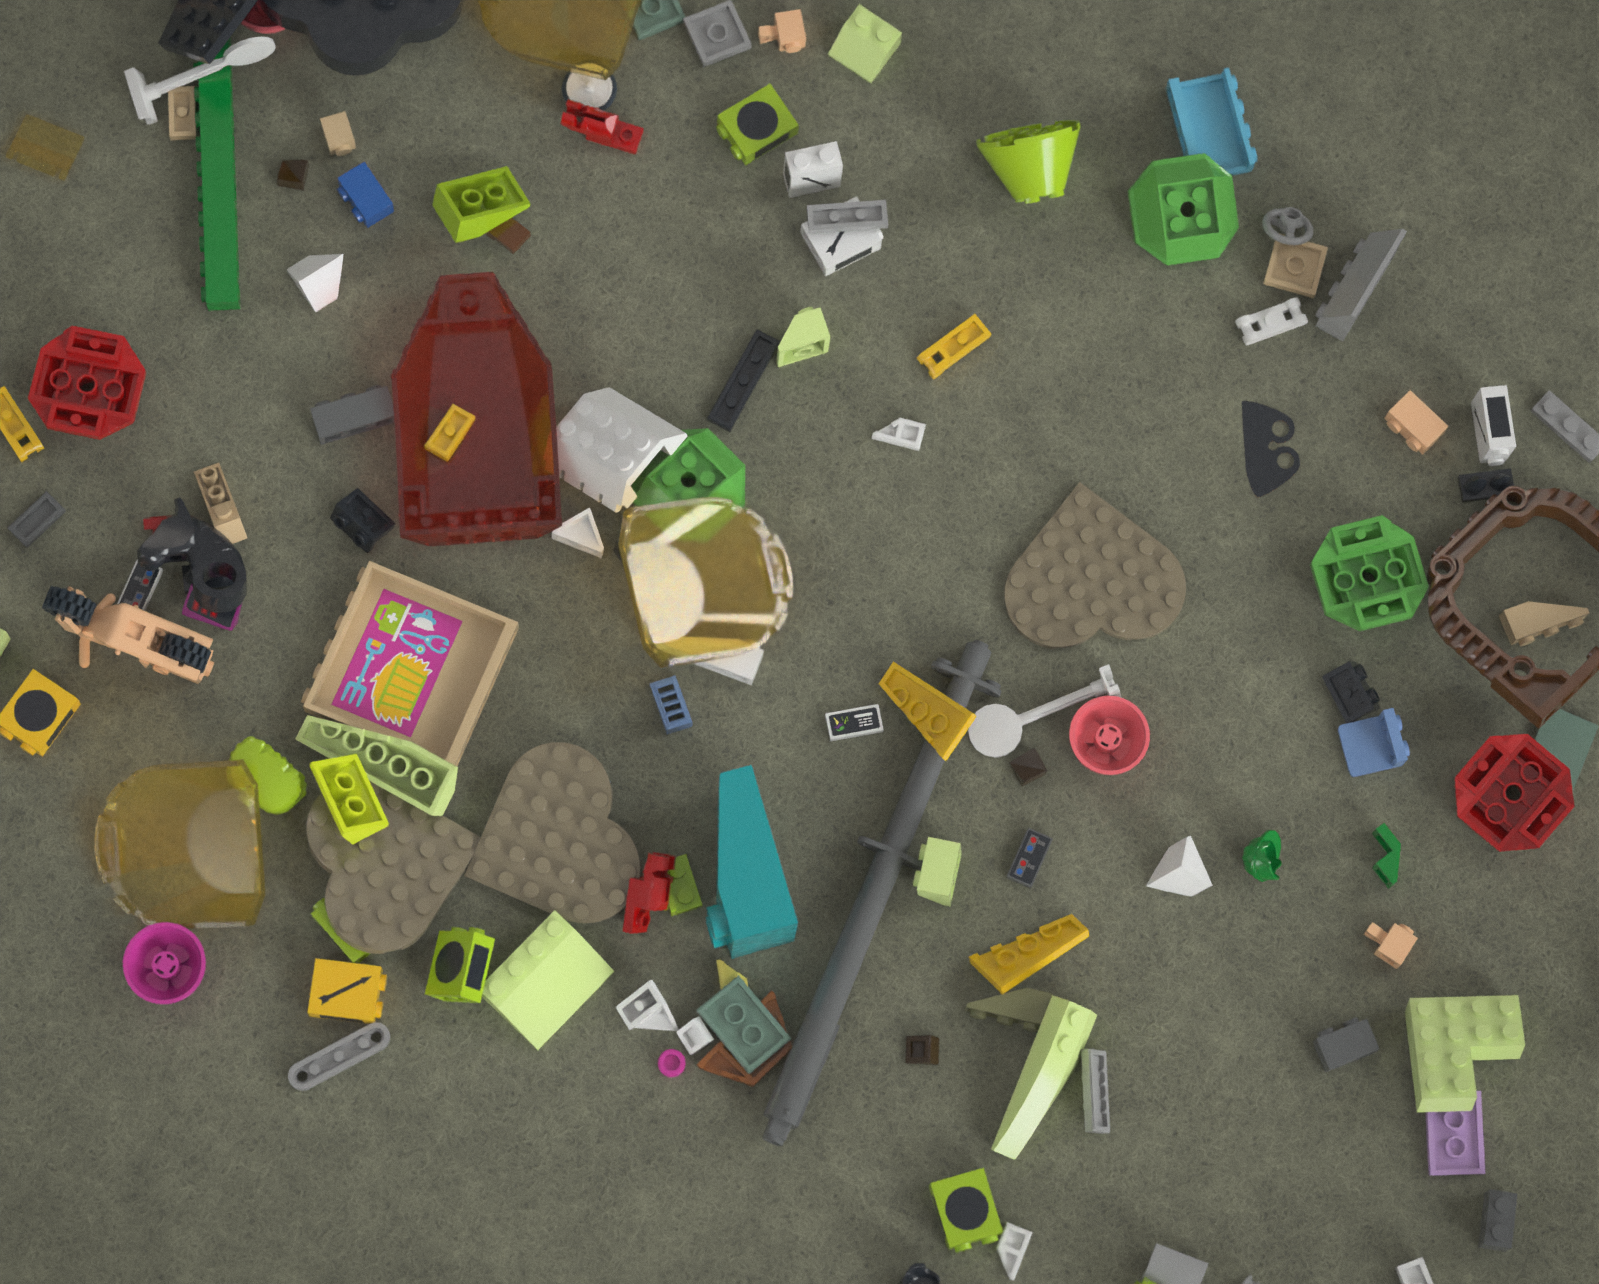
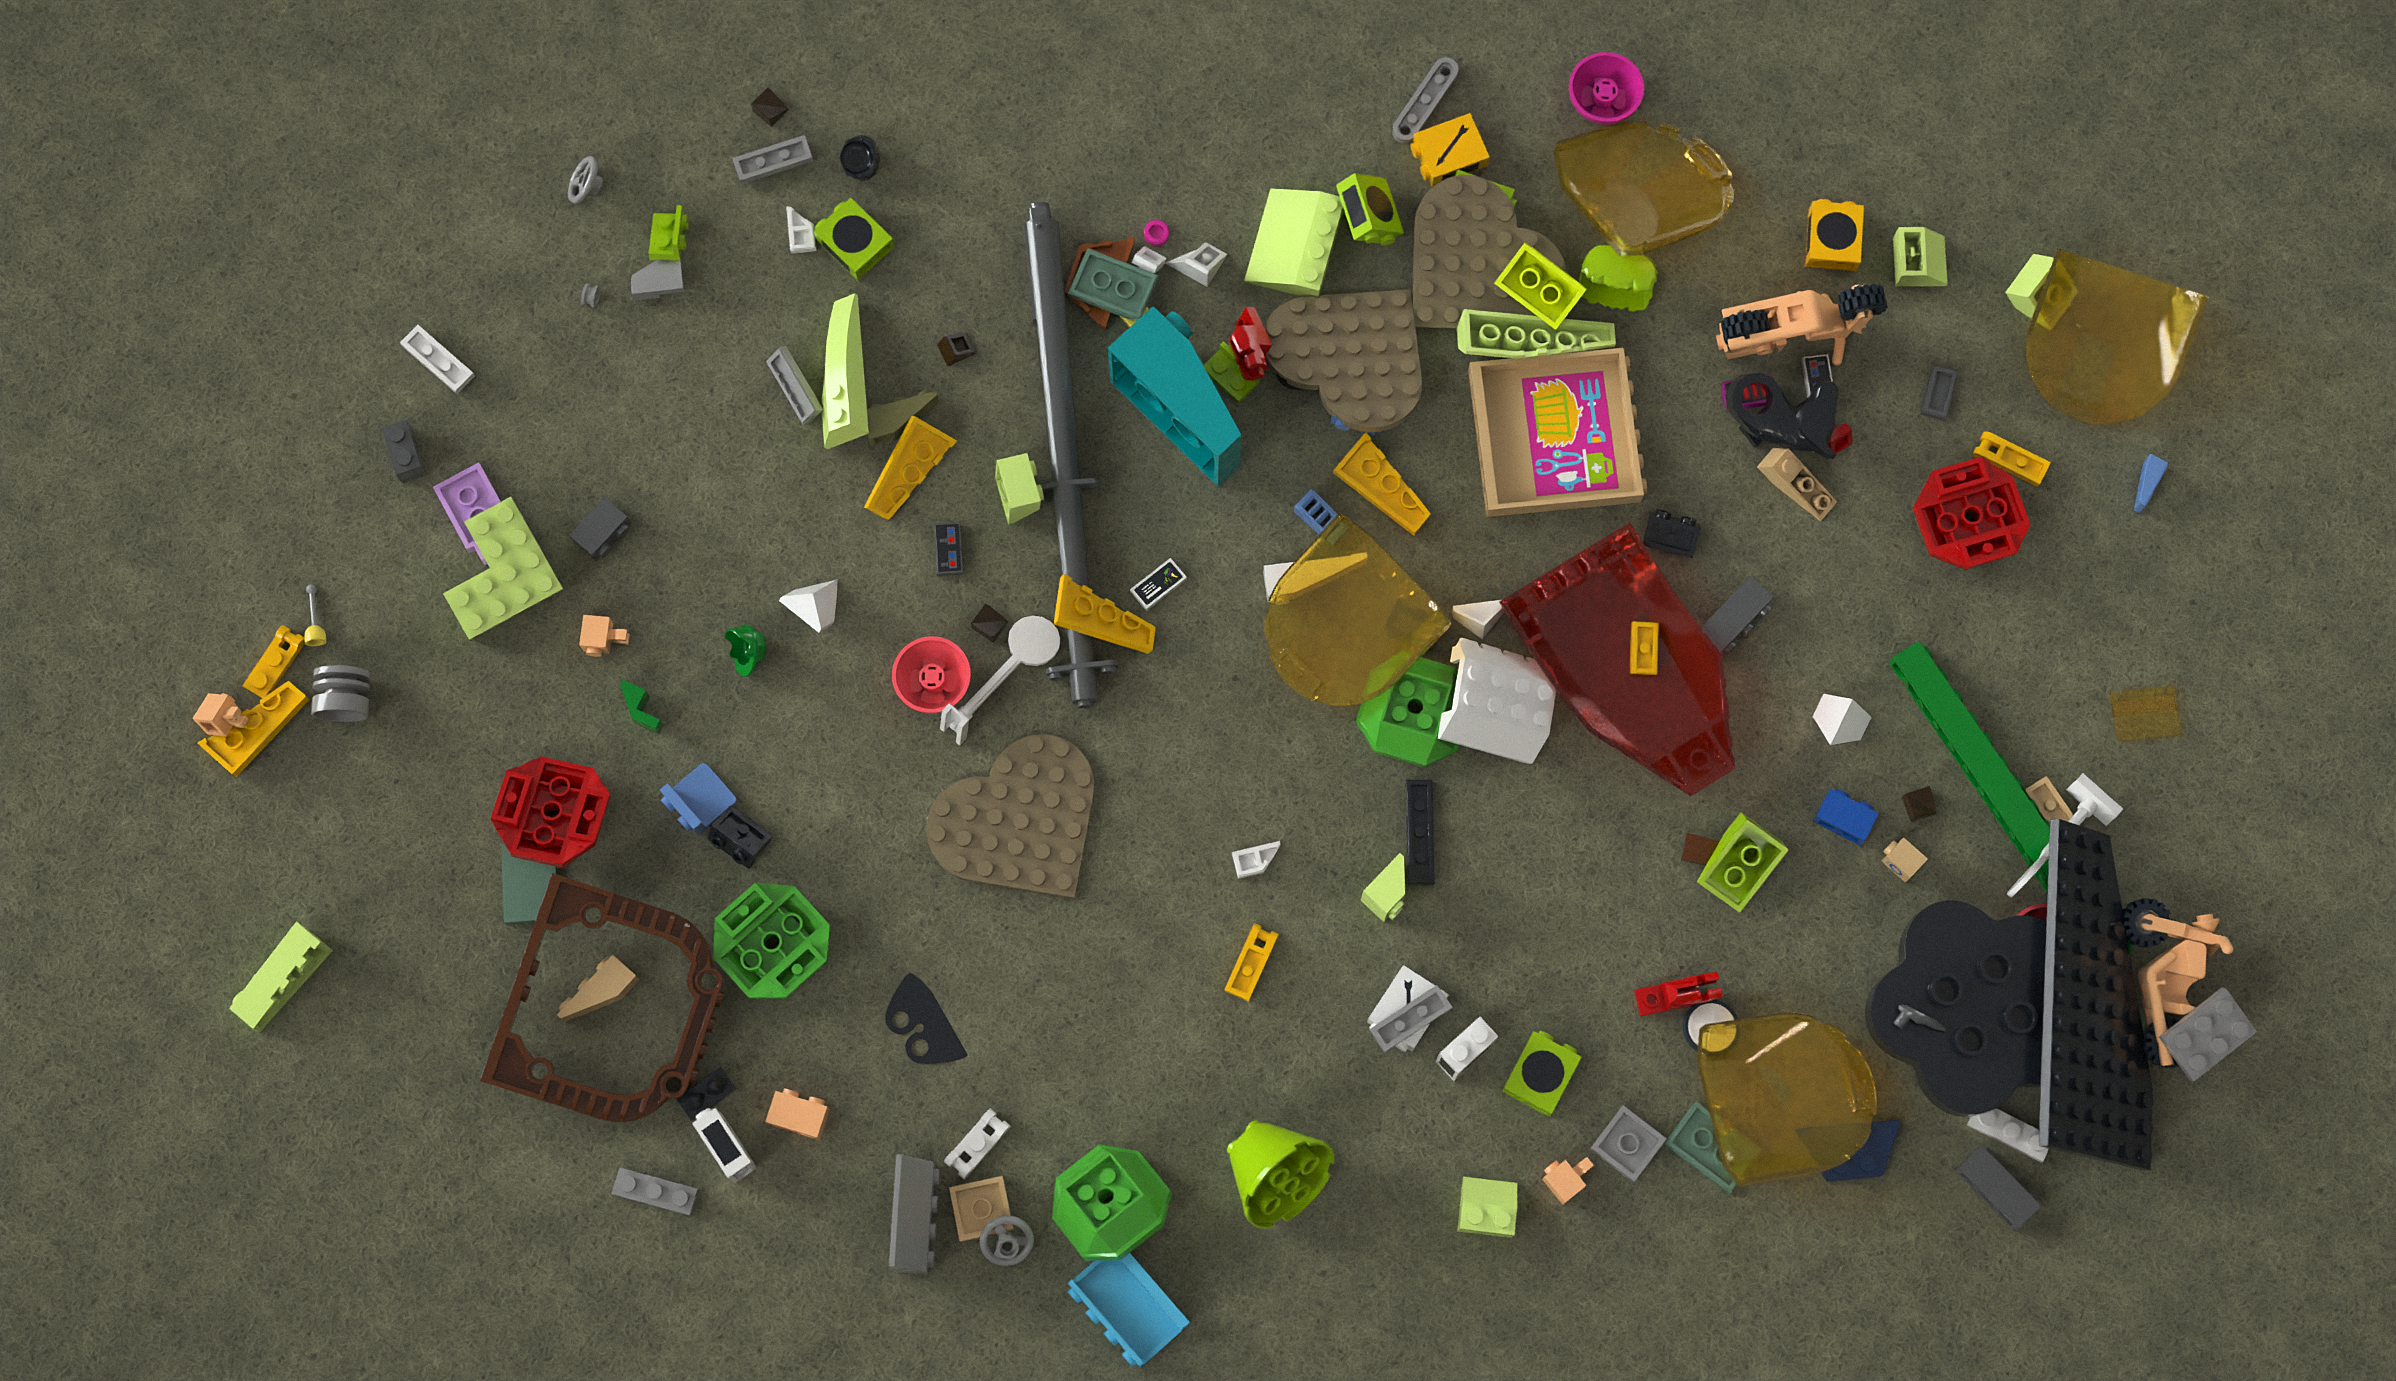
camera: 160 degrees right, 0 degrees up
(600, 709) = (1377, 481): none -> yellow wing

